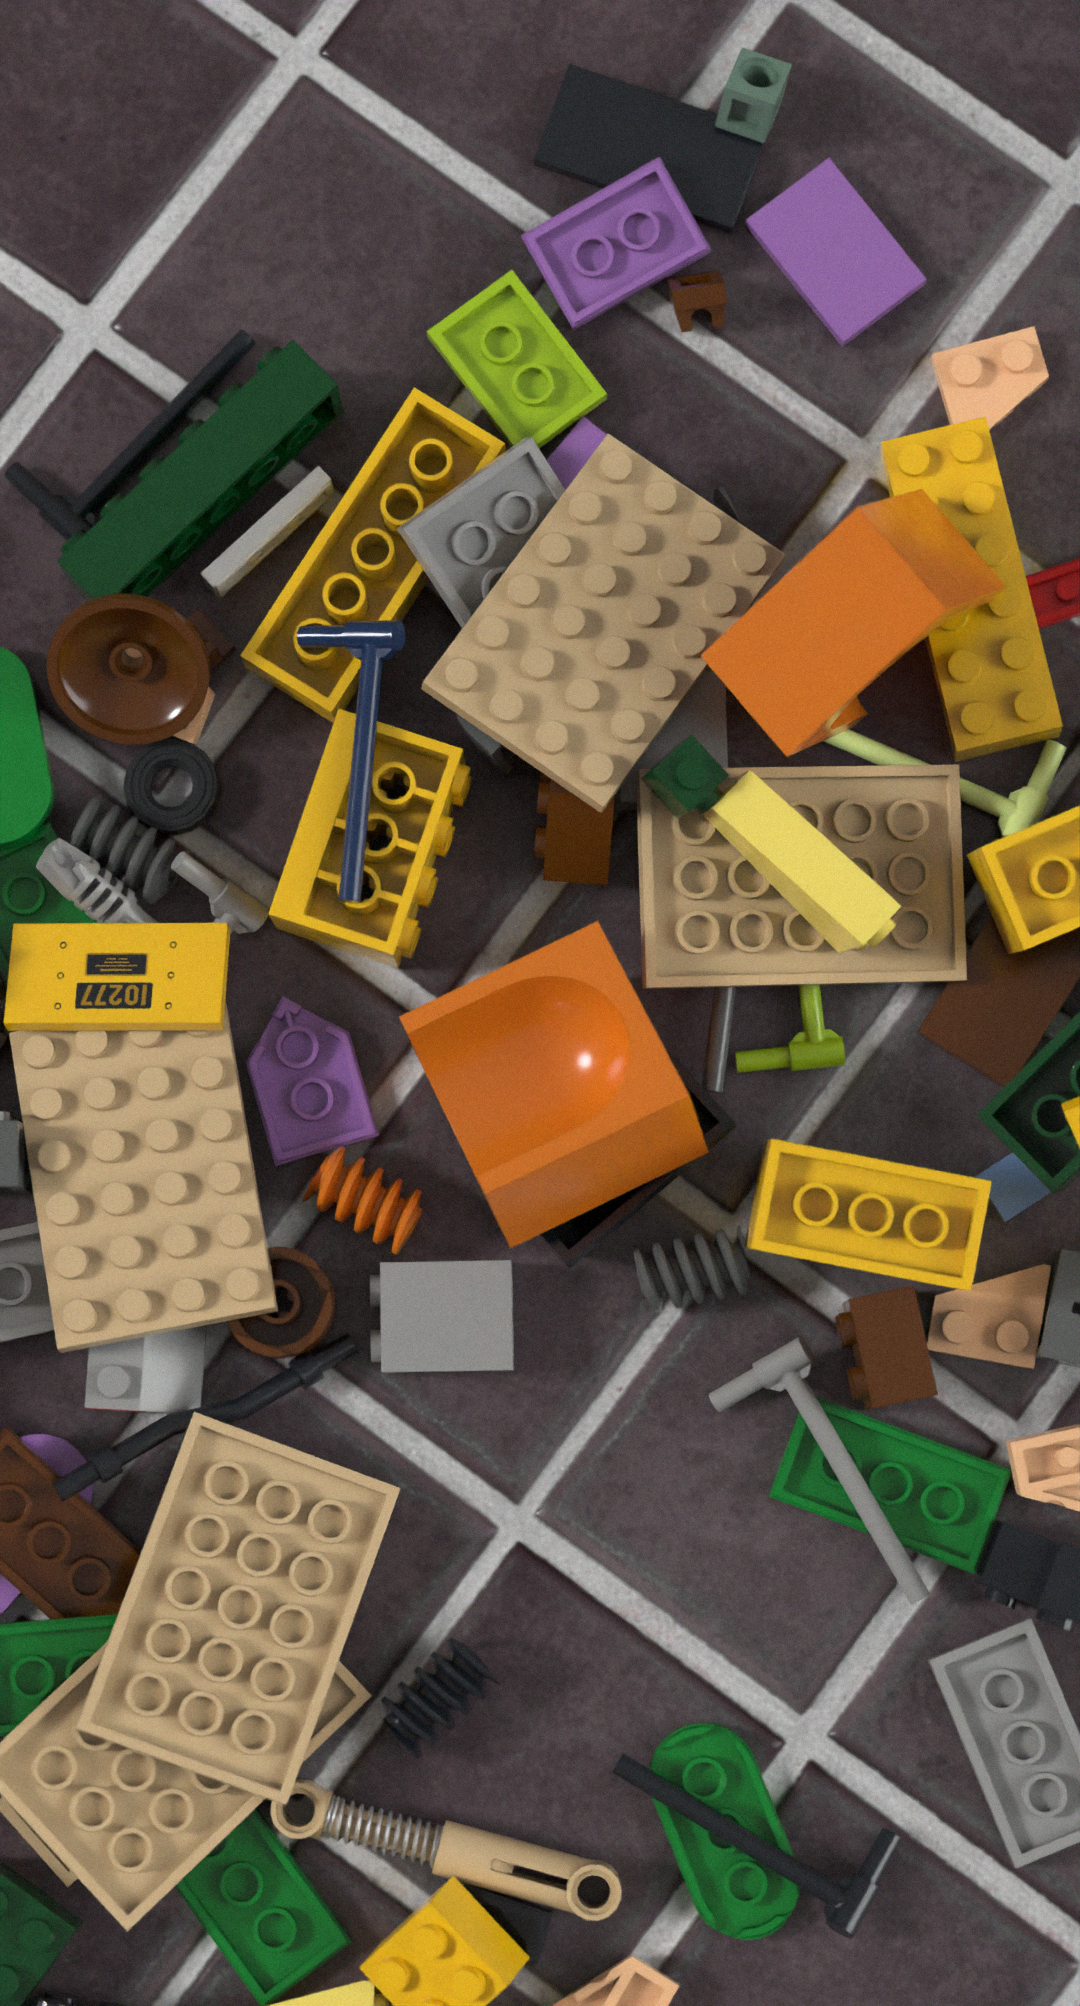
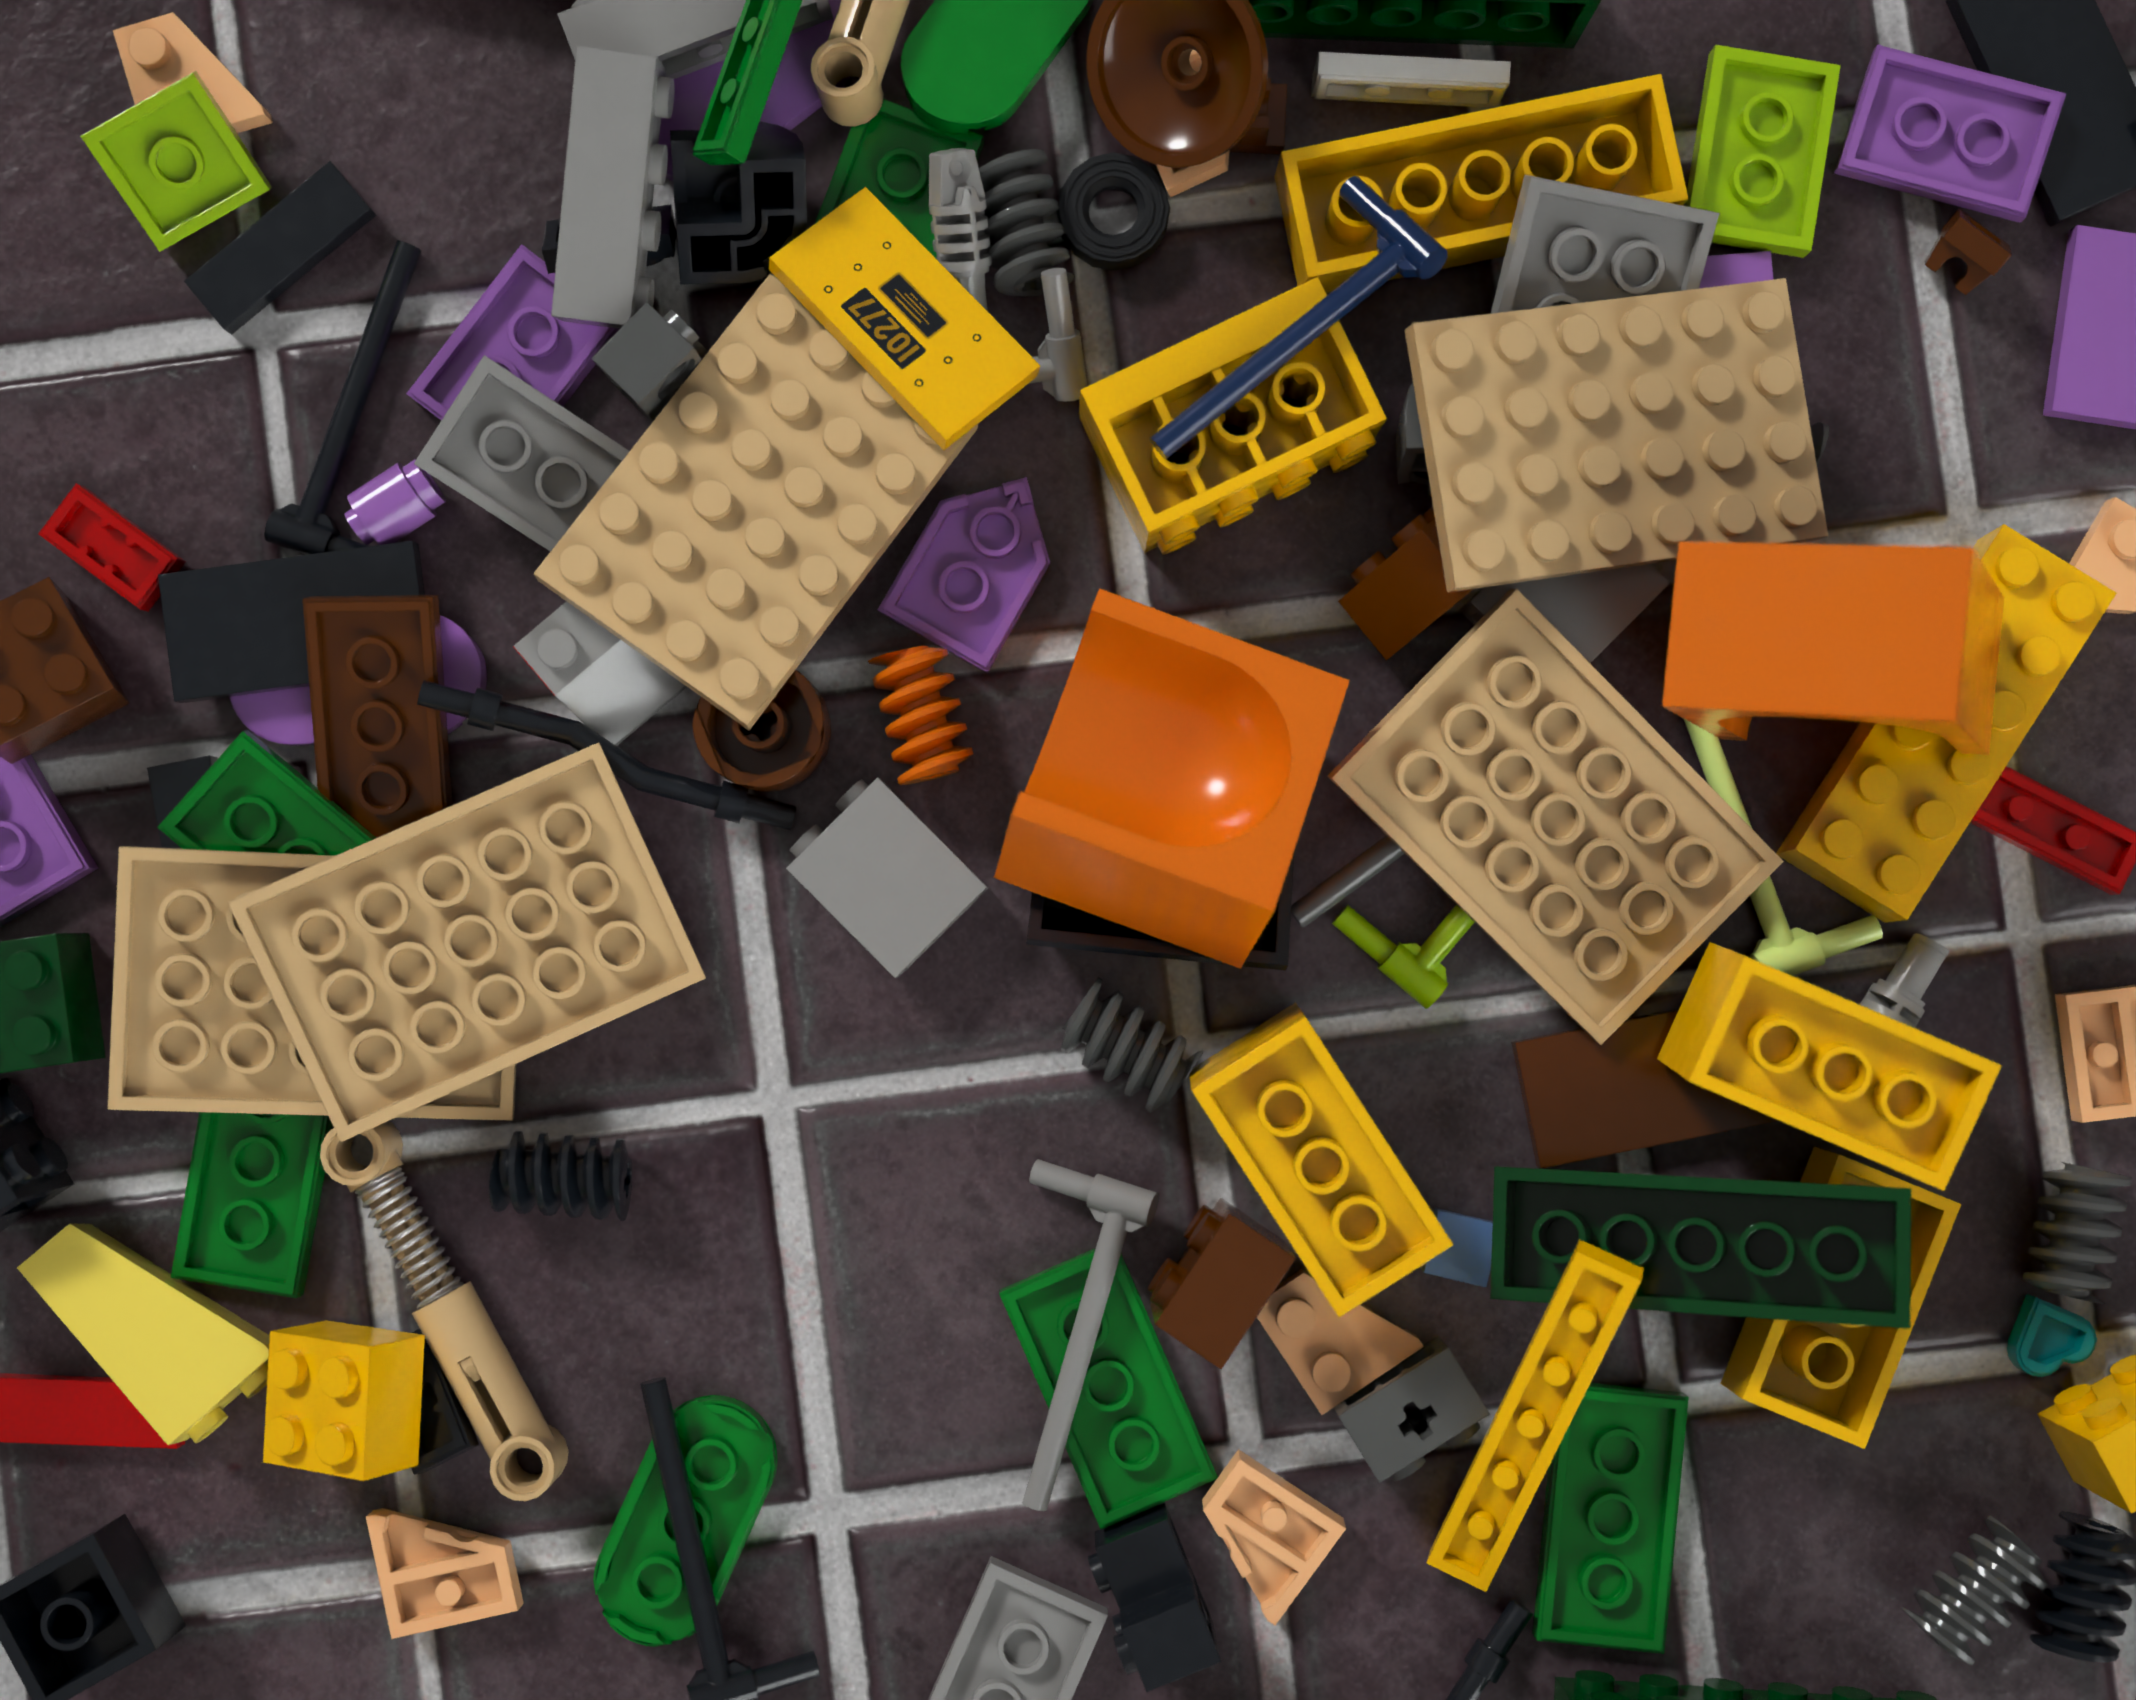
camera: 40 degrees right, 5 degrees up
(686, 778) = (1551, 637): dark green brick -> none
(803, 865) = (1572, 813): light yellow slope -> none

